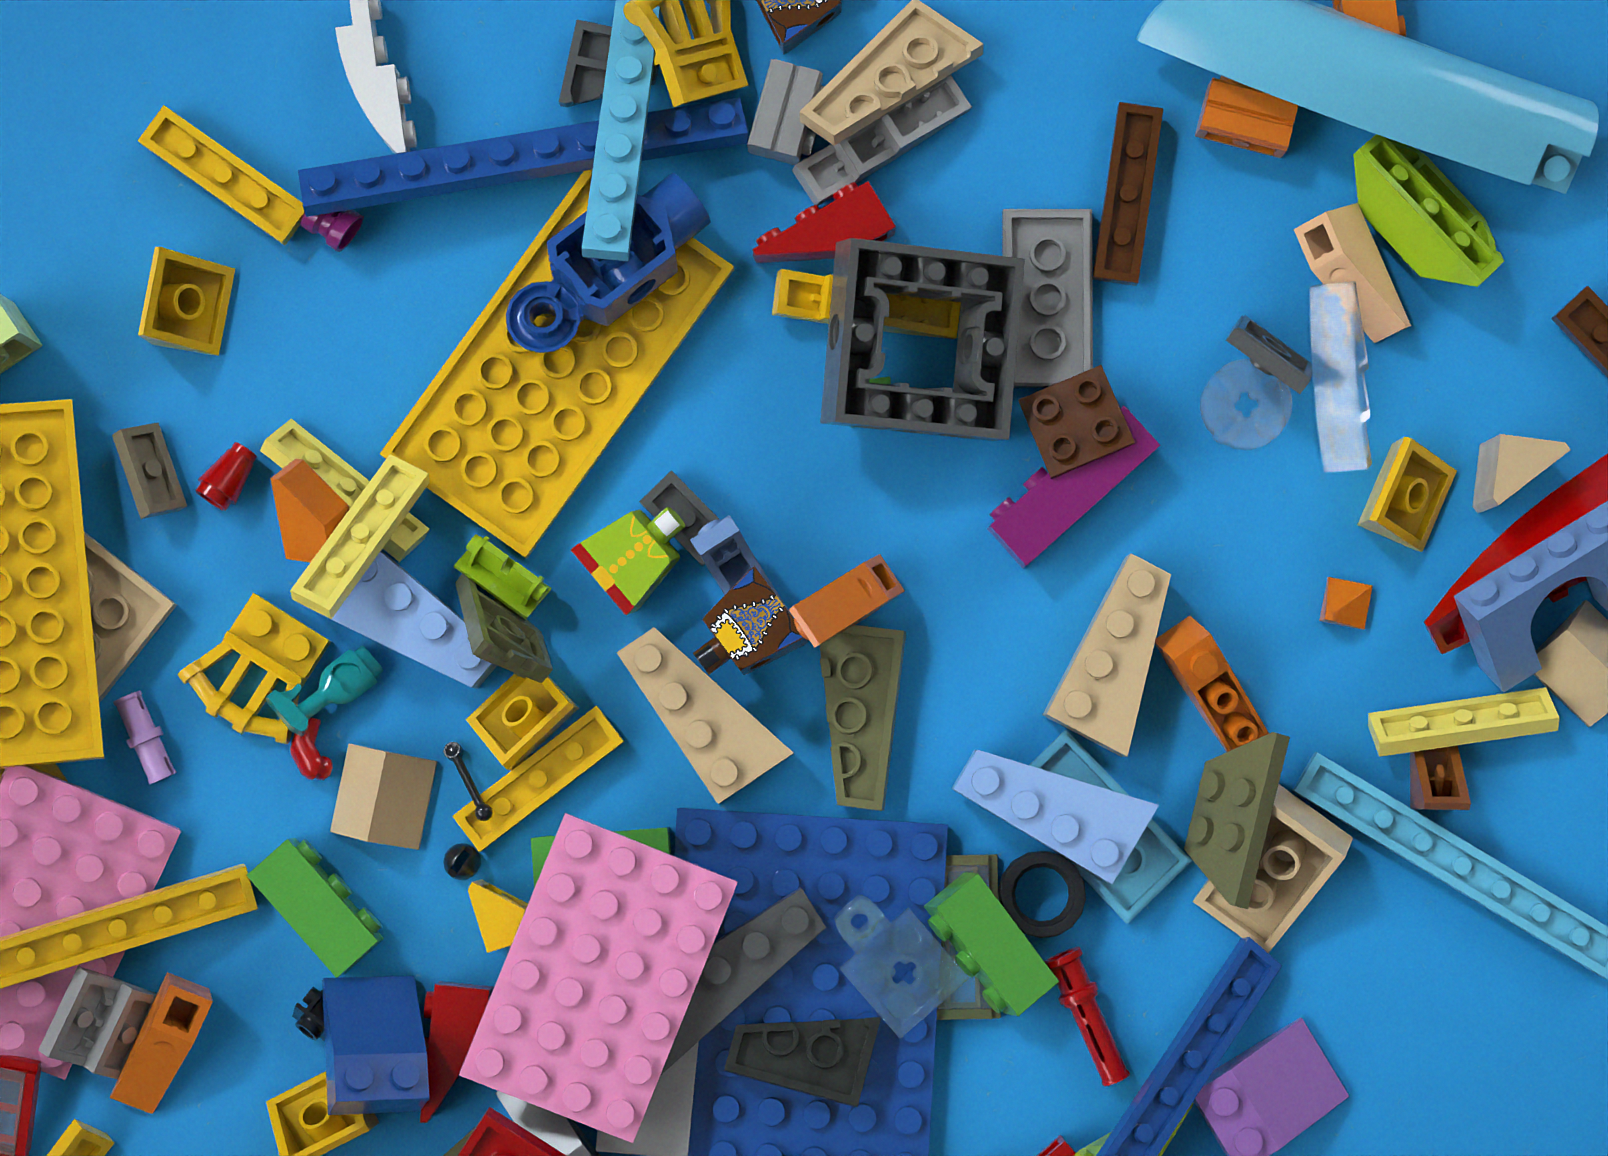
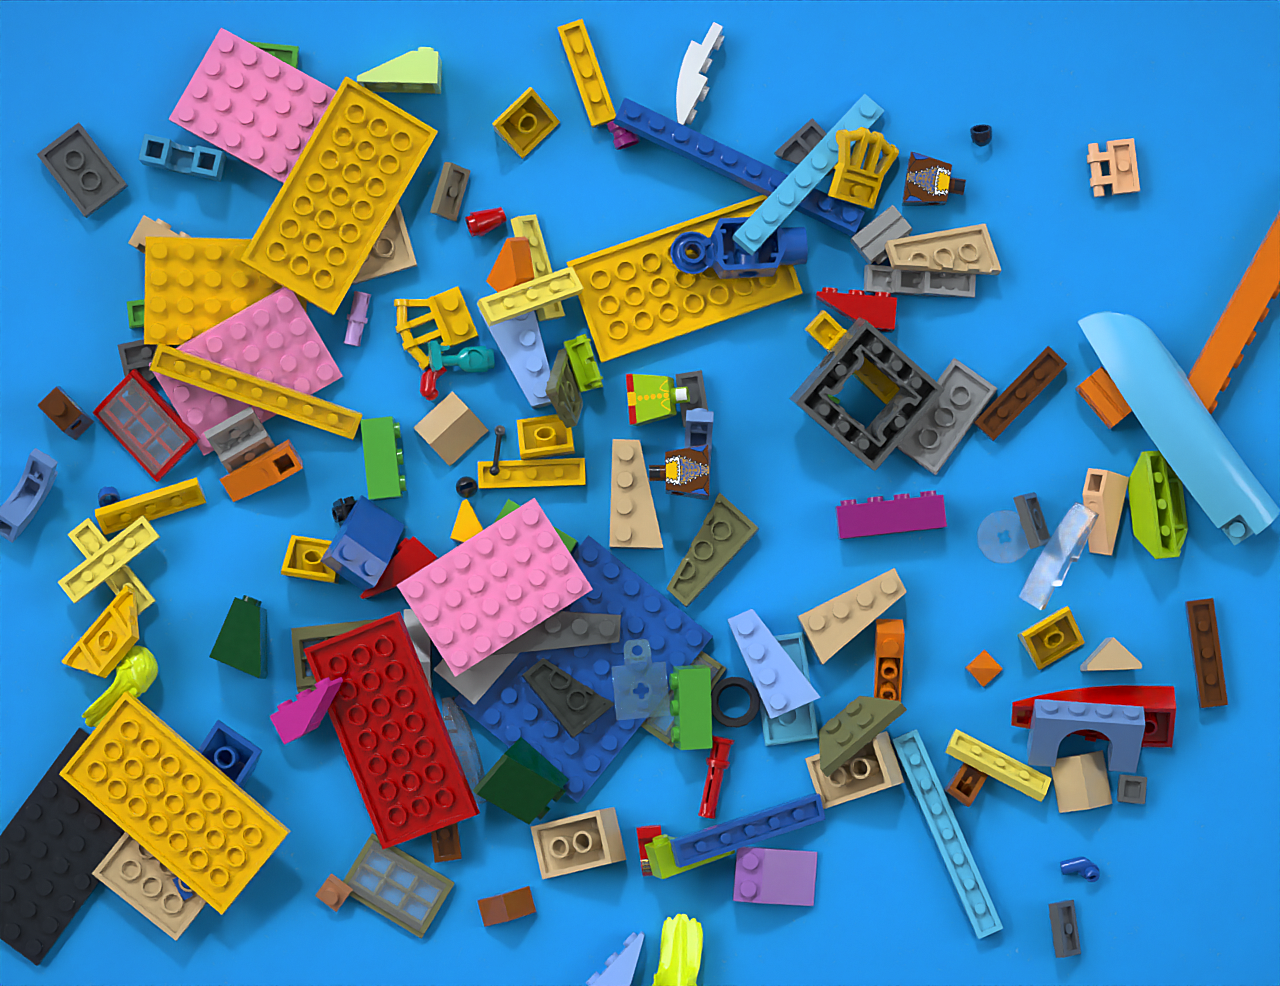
camera: 40 degrees right, 0 degrees up
(846, 601) = (740, 493): orange slope -> none
(1076, 421) = (914, 486): reddish brown hinge -> none

